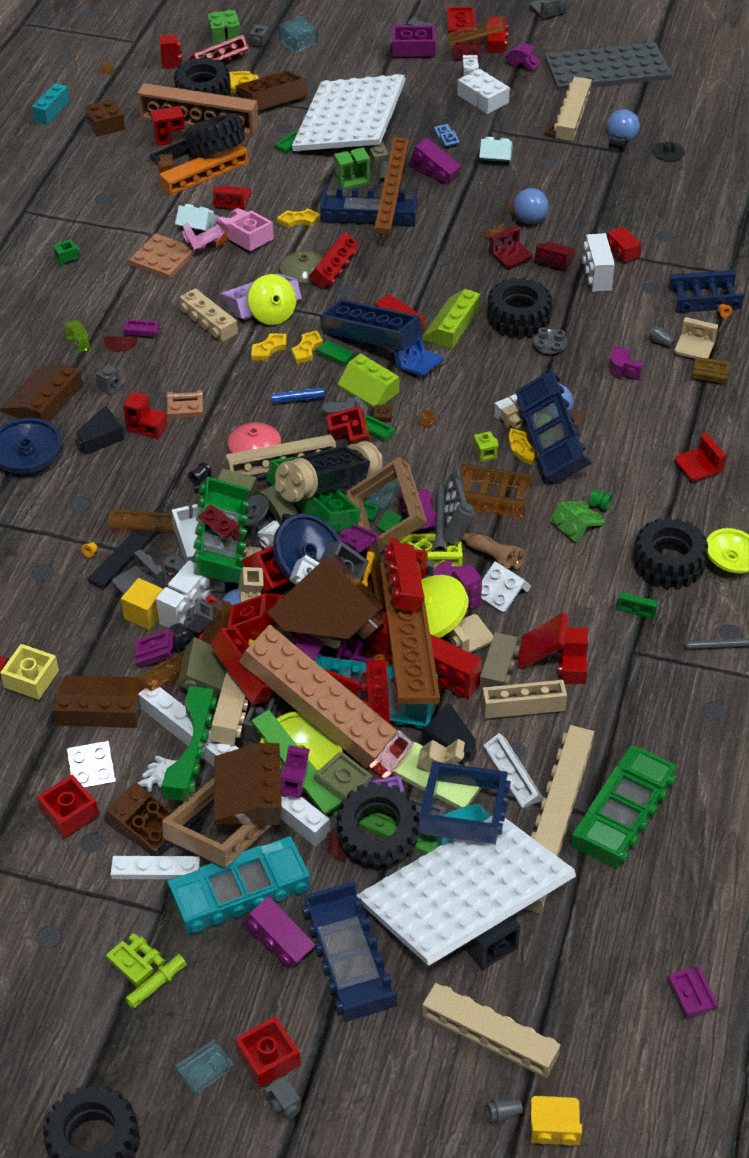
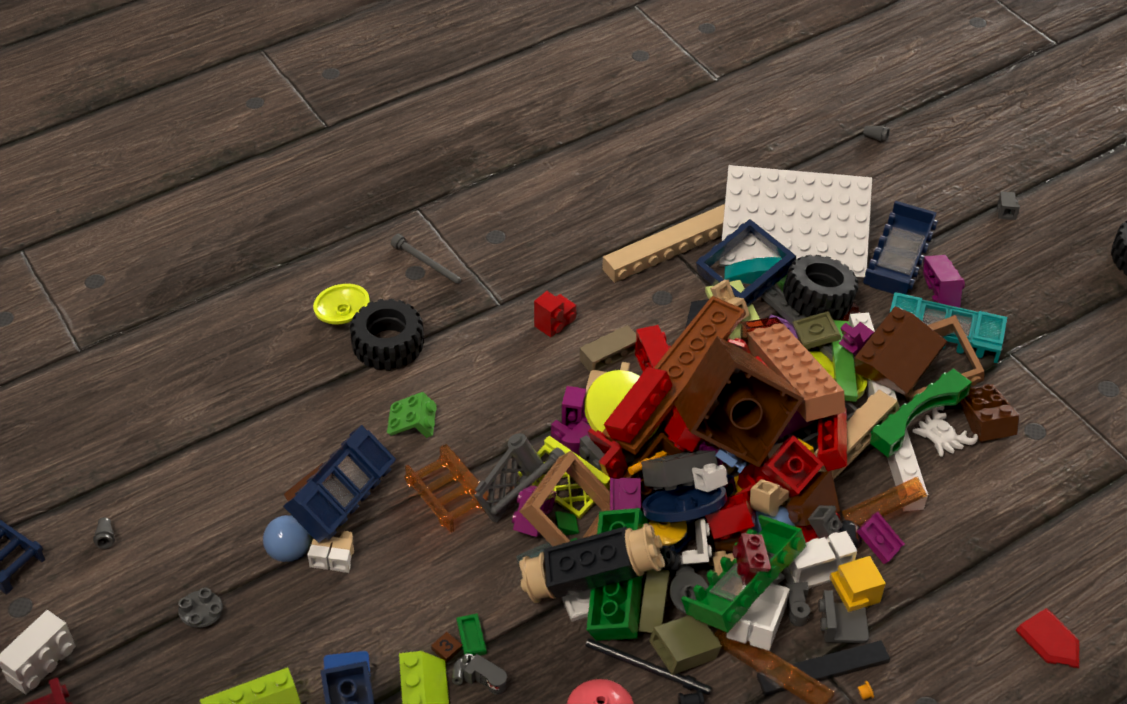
camera: 140 degrees left, 0 degrees up
(29, 671) = (1009, 586): light yellow brick -> none
(67, 806) = (1044, 451): red brick -> none
(91, 764) = (995, 475): hinge -> none
(98, 701) = (958, 530): reddish brown slope -> none
(130, 963) = (1059, 330): lime plate -> none
(153, 866) = (1005, 384): white plate -> none
(163, 975) = (1047, 310): lime pin -> none
(201, 667) = (858, 484): olive brick -> none
(204, 1066) = (1045, 252): clear light blue plate -> none
(258, 460) = (598, 656): tan brick -> none
(267, 1051) = (1002, 226): red brick -> none
(349, 423) = (500, 638): red brick -> none
(427, 418) = (414, 607): clear orange plate -> none
(485, 446) = (402, 534): lime brick -> none
(491, 1030) = (844, 157): tan brick -> none
(502, 586) = (539, 400): white bracket -> none
(504, 554) = (510, 420): medium nougat piece -> none
(507, 760) = (678, 284): white slope -> none
(521, 447) = (368, 520): yellow tile -> none
(523, 321) = (189, 681): black tyre -> none
(524, 699) = (622, 307): tan brick -> none
(543, 640) = (567, 327): red tile -> none
(555, 1121) = (854, 110): yellow bracket -> none
(598, 499) = (373, 416): green wheel -> none
(621, 365) = (179, 532): magenta brick -> none
(624, 807) = (632, 211): green window -> none
(637, 605) = (460, 324): green plate -> none
(692, 992) = (707, 116): magenta plate -> none
(696, 338) = (87, 504): tan bracket -> none
(702, 461) = (250, 394): red bracket -> none
(711, 370) = (118, 468): pearl gold plate -> none
(724, 310) = (10, 519): orange piece -> none

